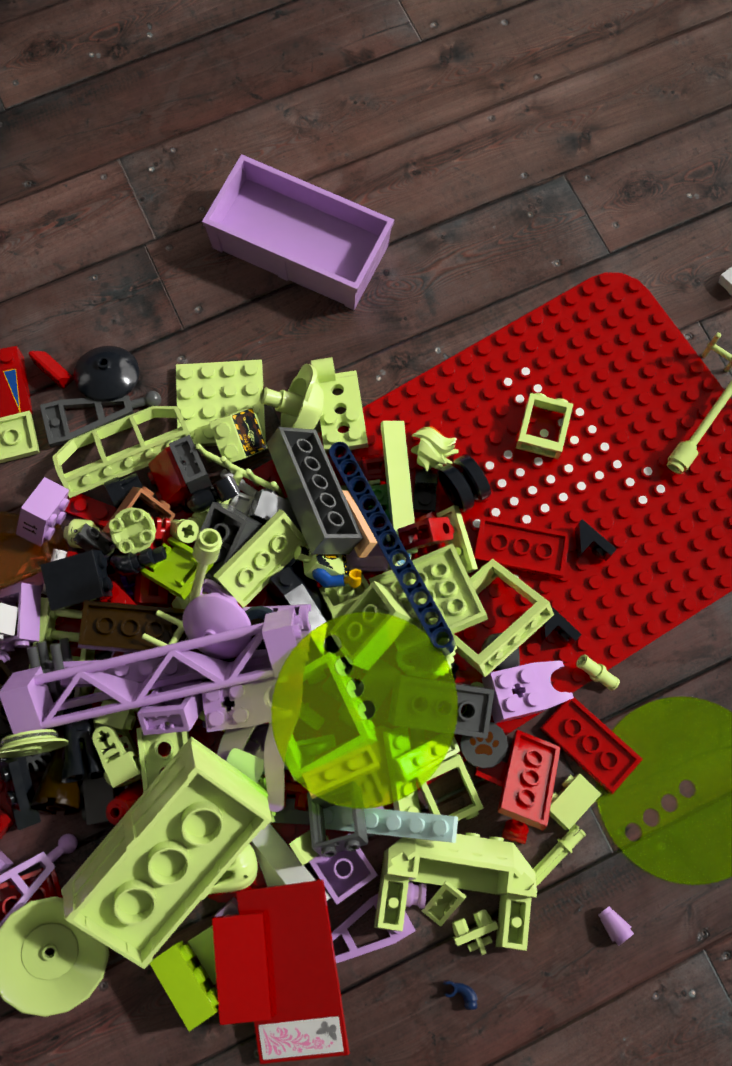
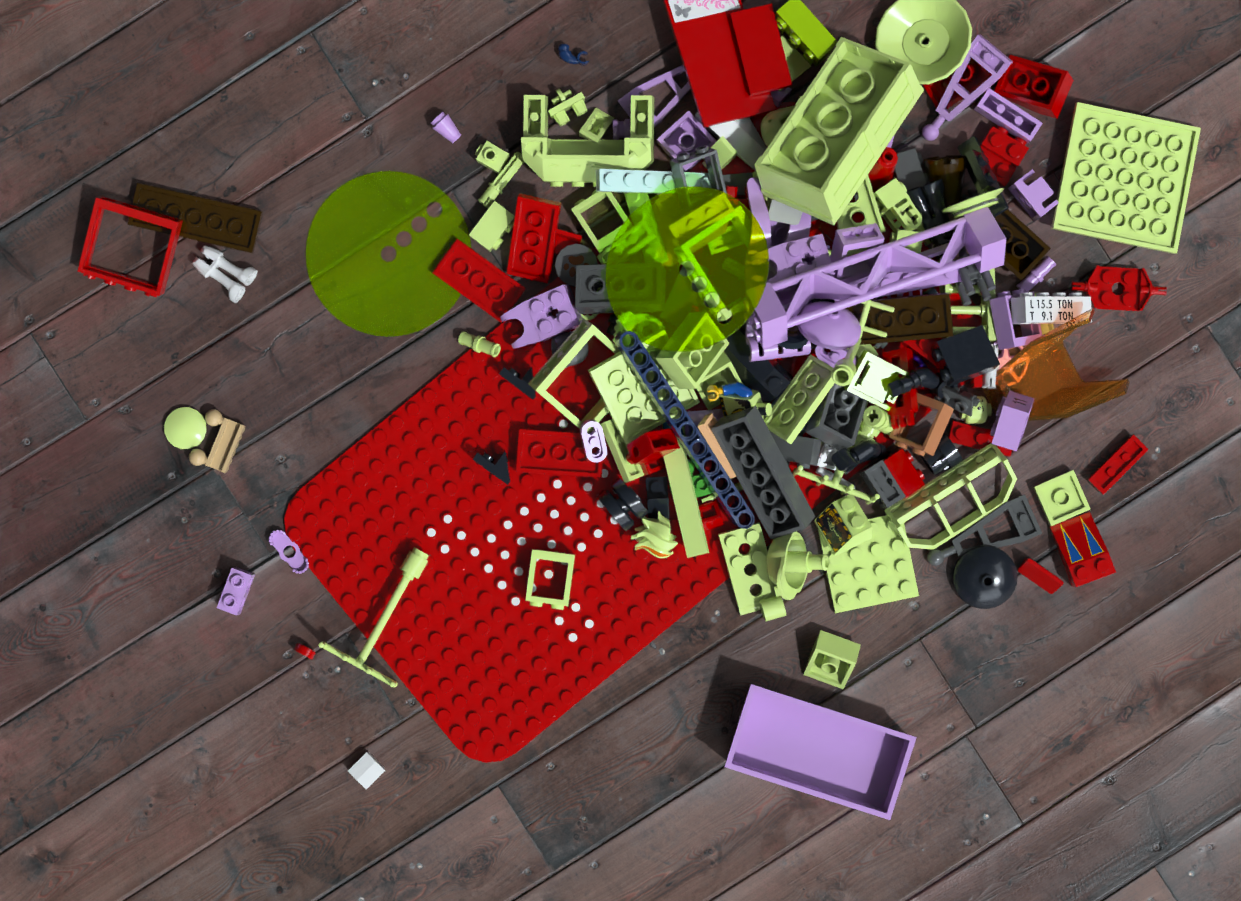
camera: 175 degrees right, 15 degrees up
(132, 530) = (922, 407): yellowish green dish -> none
(271, 318) = (832, 659): none -> yellowish green slope
(487, 551) = (592, 440): none -> plate
(515, 831) = (540, 192): red plate -> none
(566, 882) = (491, 157): none -> yellowish green brick

